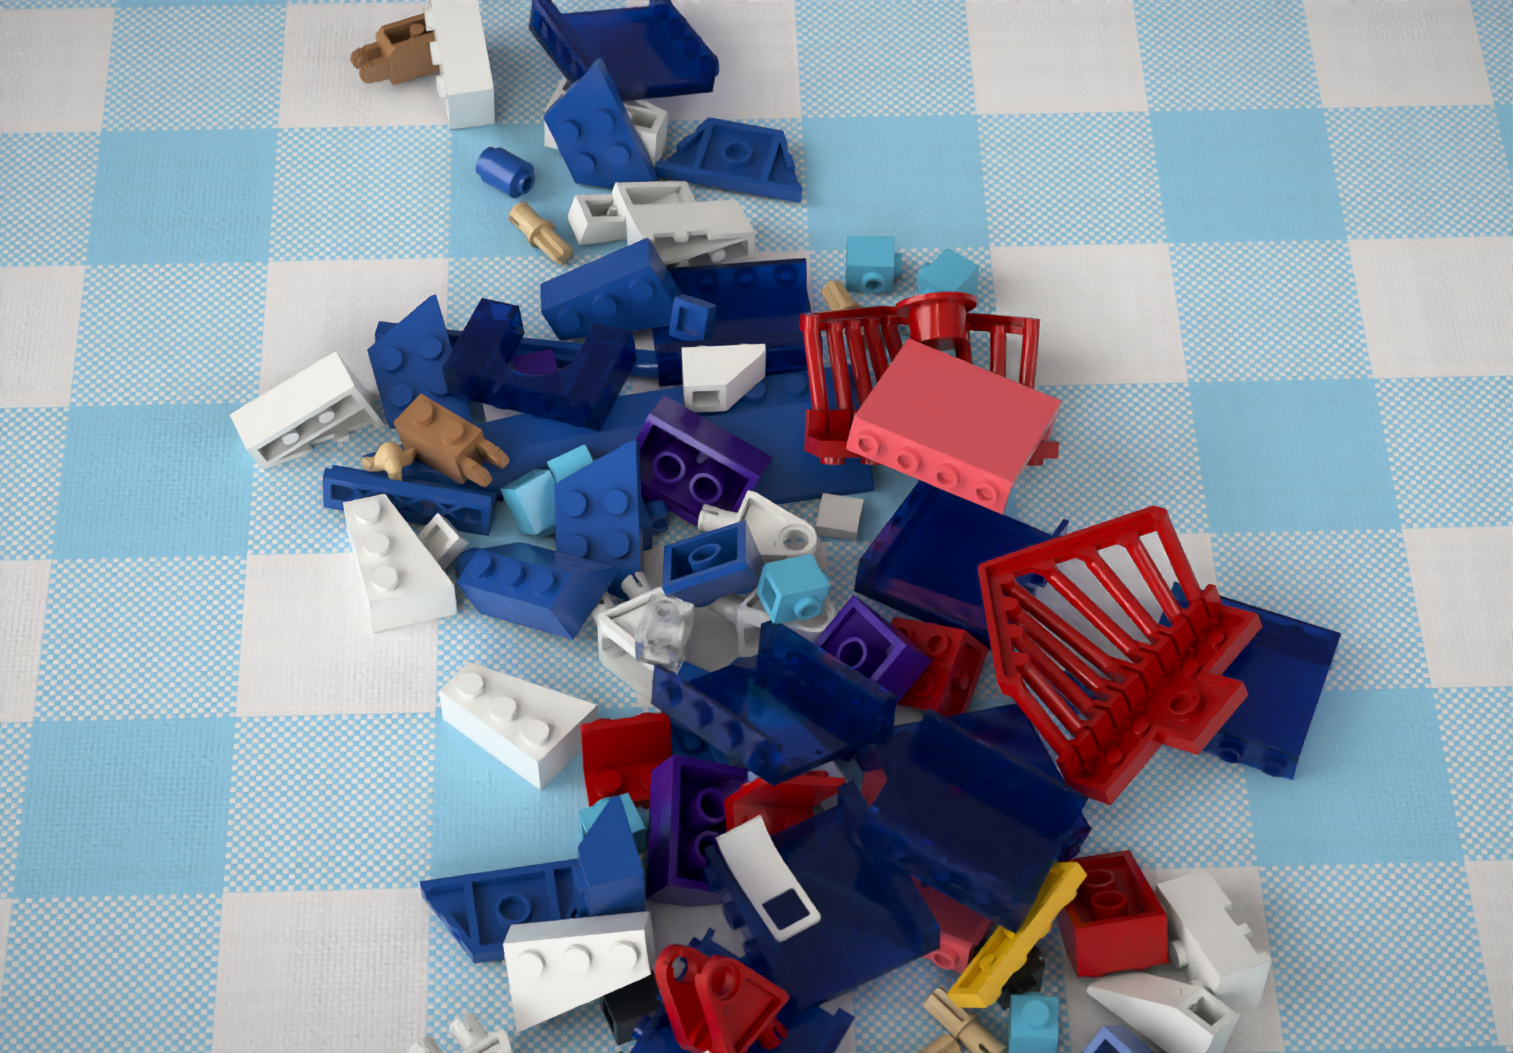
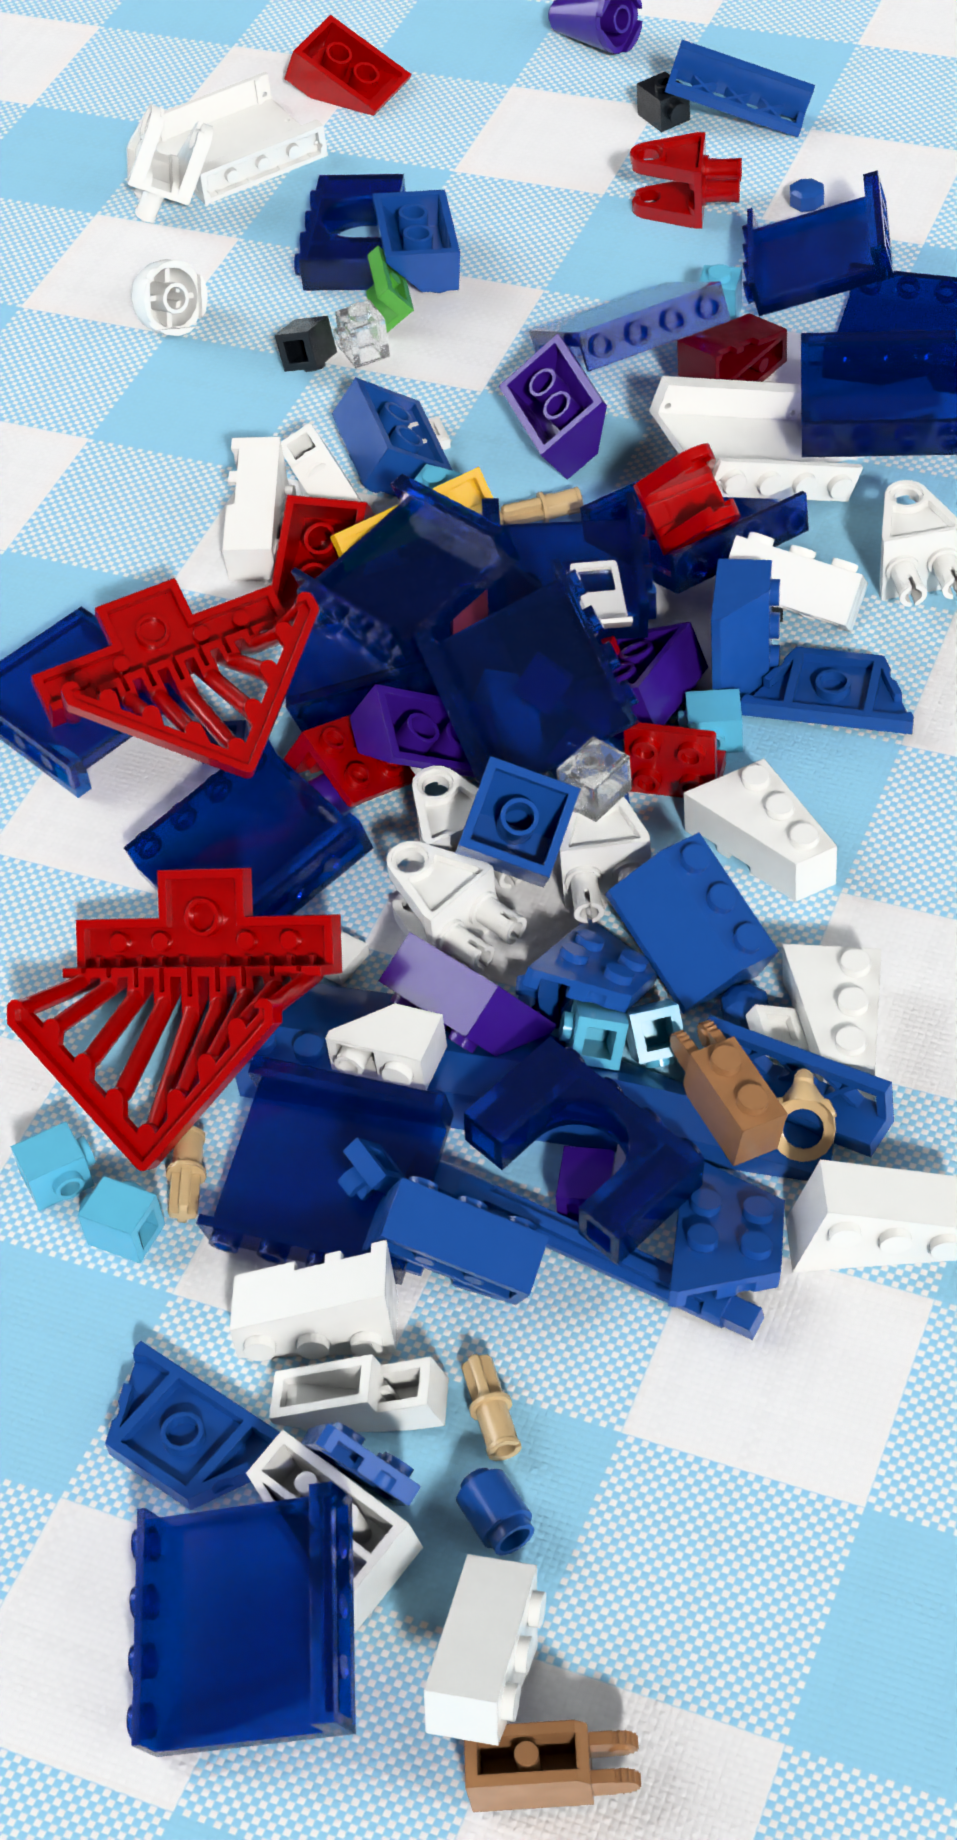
camera: 150 degrees left, 5 degrees down
(793, 589) = (445, 776): medium azure brick -> none
(938, 318) = (110, 1041): red piece -> none
(952, 424) = (177, 903): coral panel -> none

